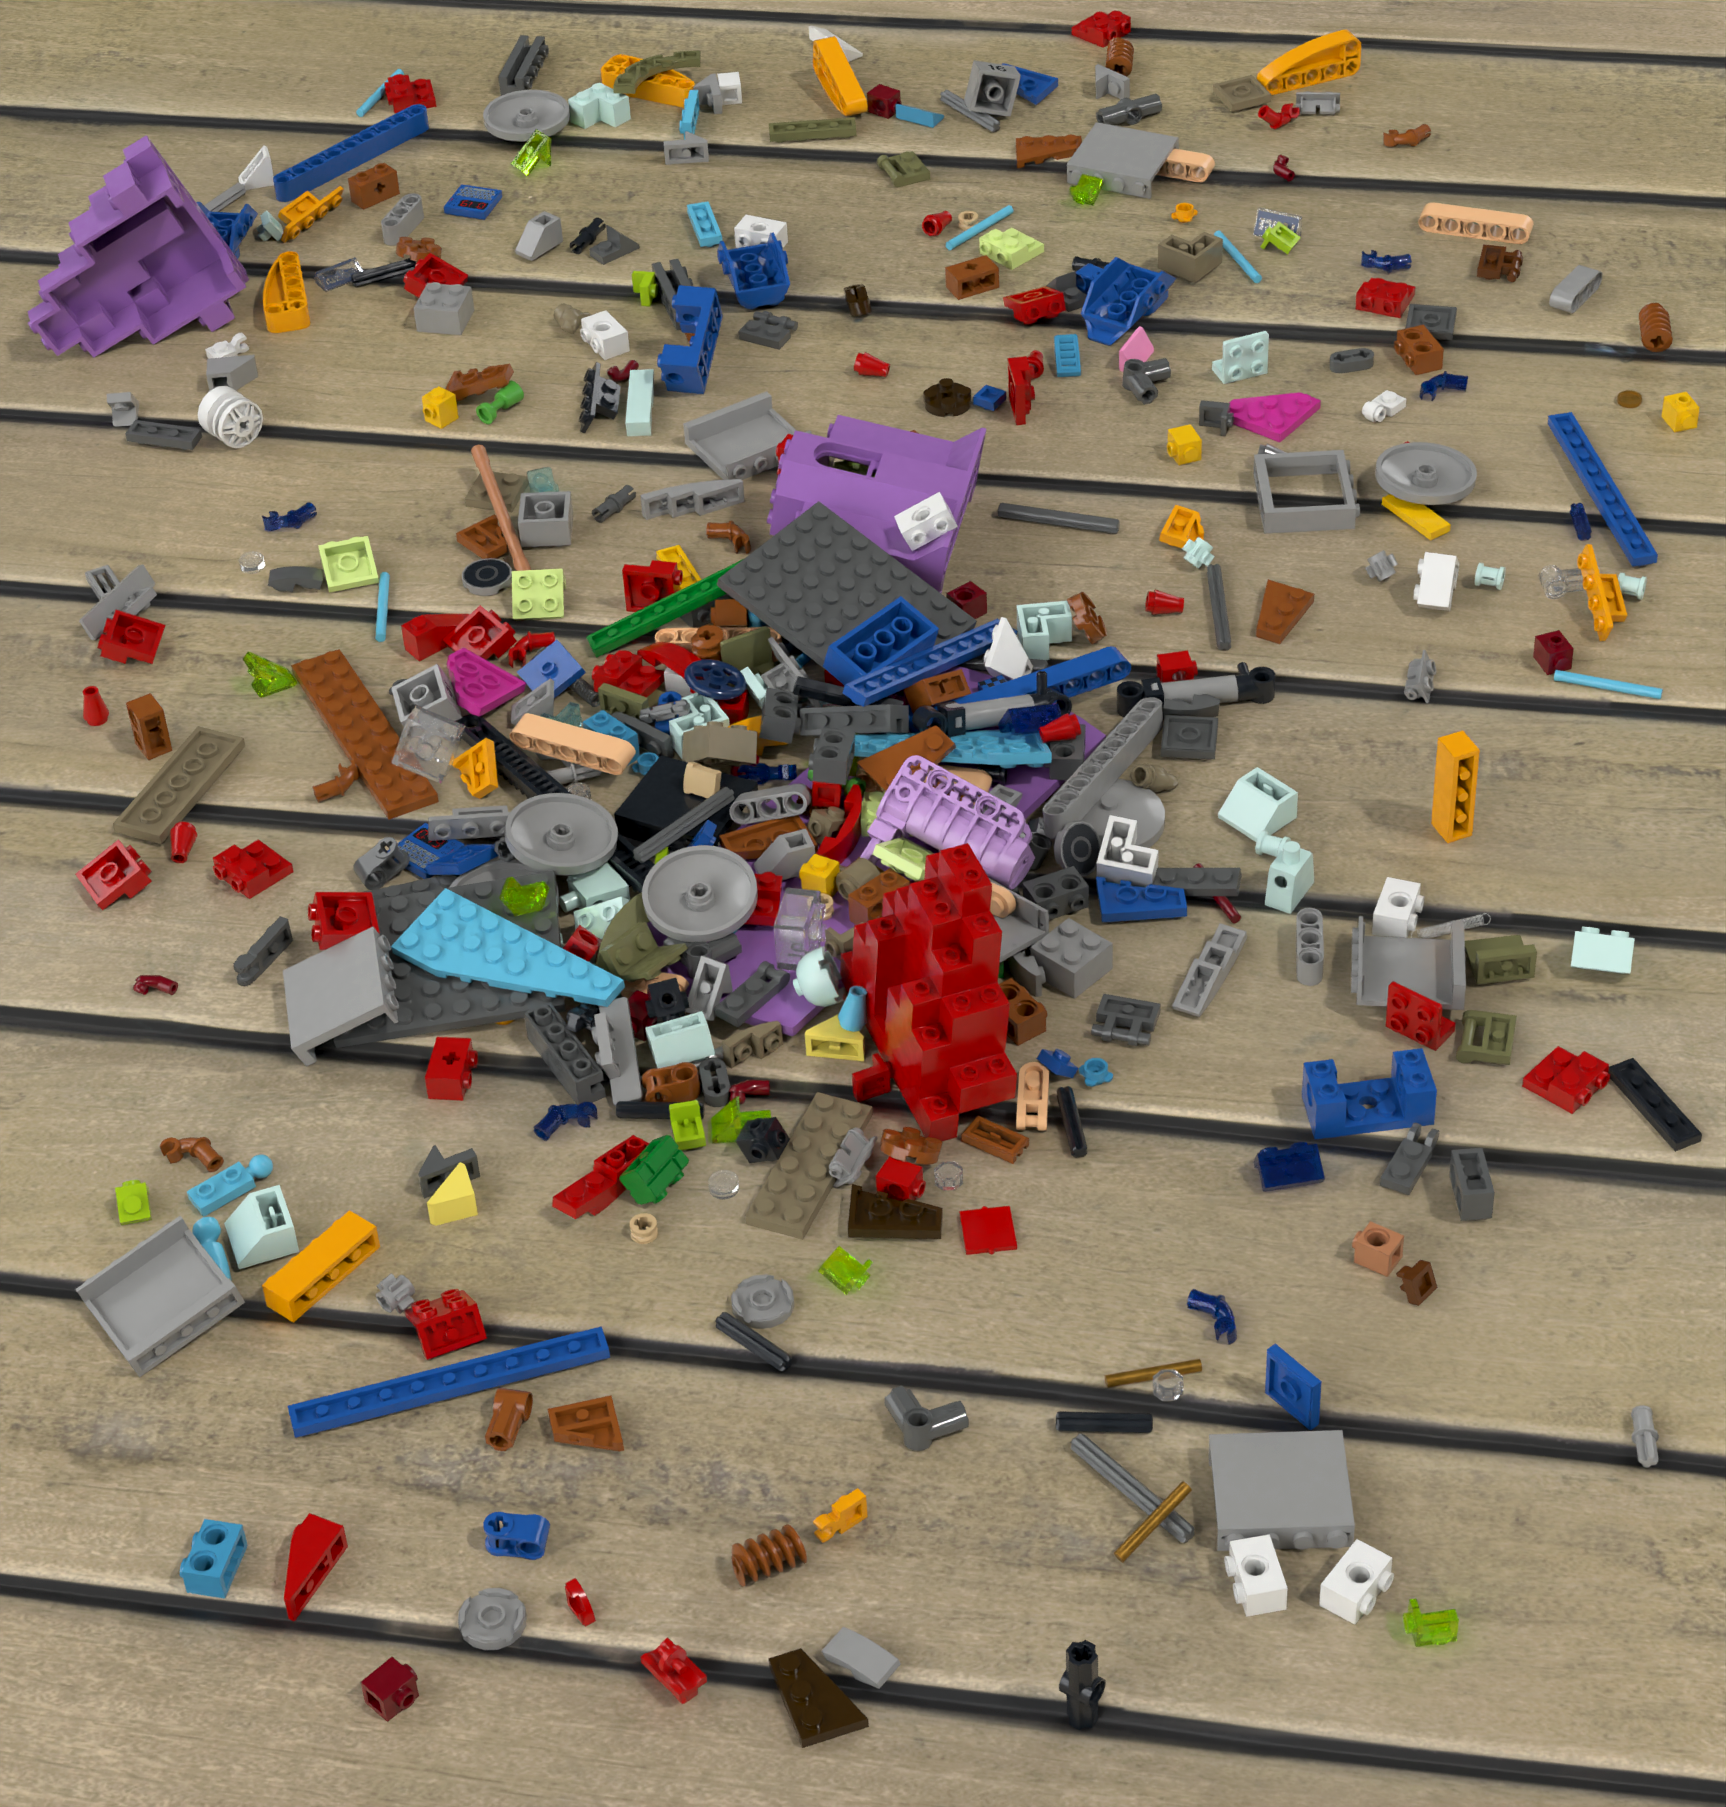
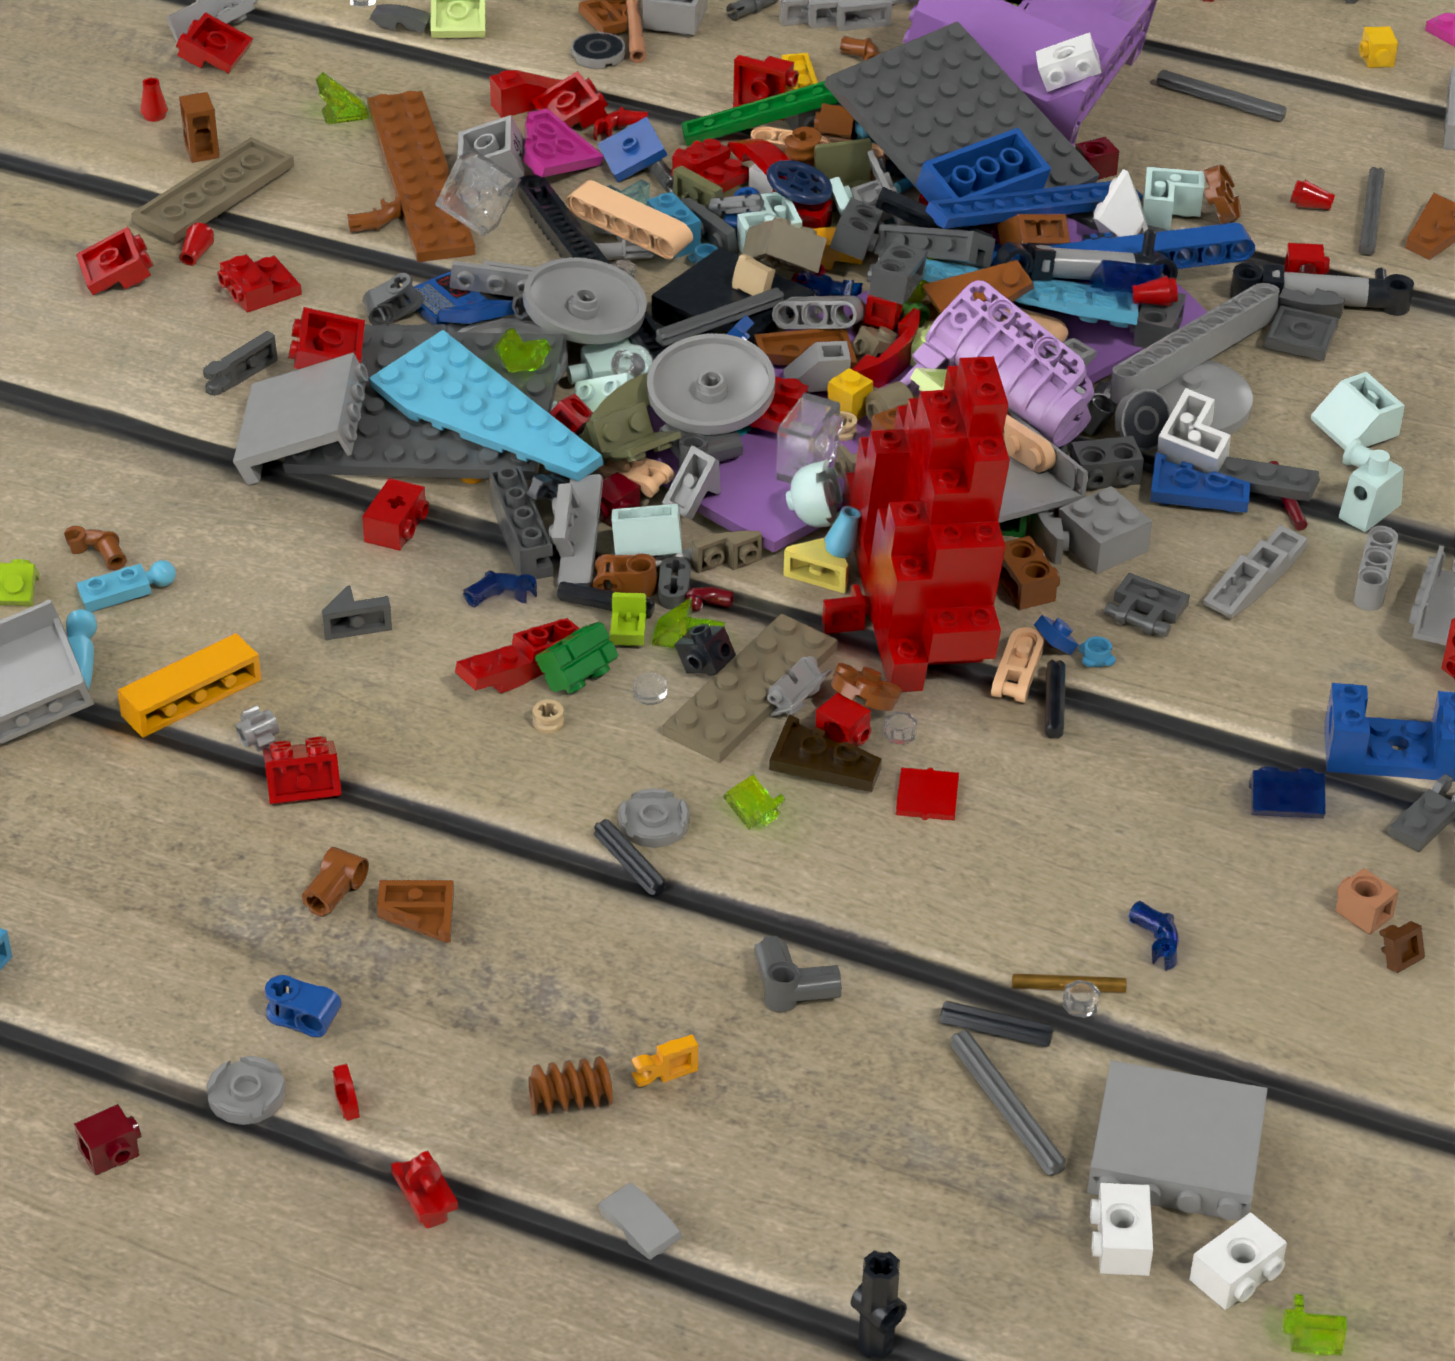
camera: 10 degrees right, 0 degrees up
(157, 982) = (120, 372): dark red arm -> none
(261, 1228) = (139, 634): light aqua slope -> none
(312, 1555) = (71, 982): red slope -> none
(382, 608) = (480, 60): medium azure bar -> none
(448, 1381) = (284, 830): blue plate -> none
(453, 1198) = (352, 645): light yellow slope -> none
(478, 768) = (525, 227): light orange wing -> none
(536, 702) = (609, 173): light grey slope -> none
(538, 594) = (644, 73): yellowish green bracket -> none
(620, 883) = (632, 360): none -> clear piece
(666, 1001) = (642, 485): black brick -> none
(752, 994) = (740, 499): dark grey plate -> none
(813, 1700) = (572, 1256): dark brown wing -> none
(992, 1142) = (960, 704): dark orange tile -> none
(997, 773) = (1076, 327): black bush -> none
(1152, 1521) = (1018, 1143): pearl gold bar -> none
(1153, 777) = (1249, 365): dark tan animal -> none
(1181, 526) = (1354, 130): light orange wing -> none
(1198, 552) = (1363, 152): light aqua gear -> none
(1216, 415) = (1421, 24): dark grey bracket -> none
(1293, 1387) = (1223, 1028): blue tile -> none

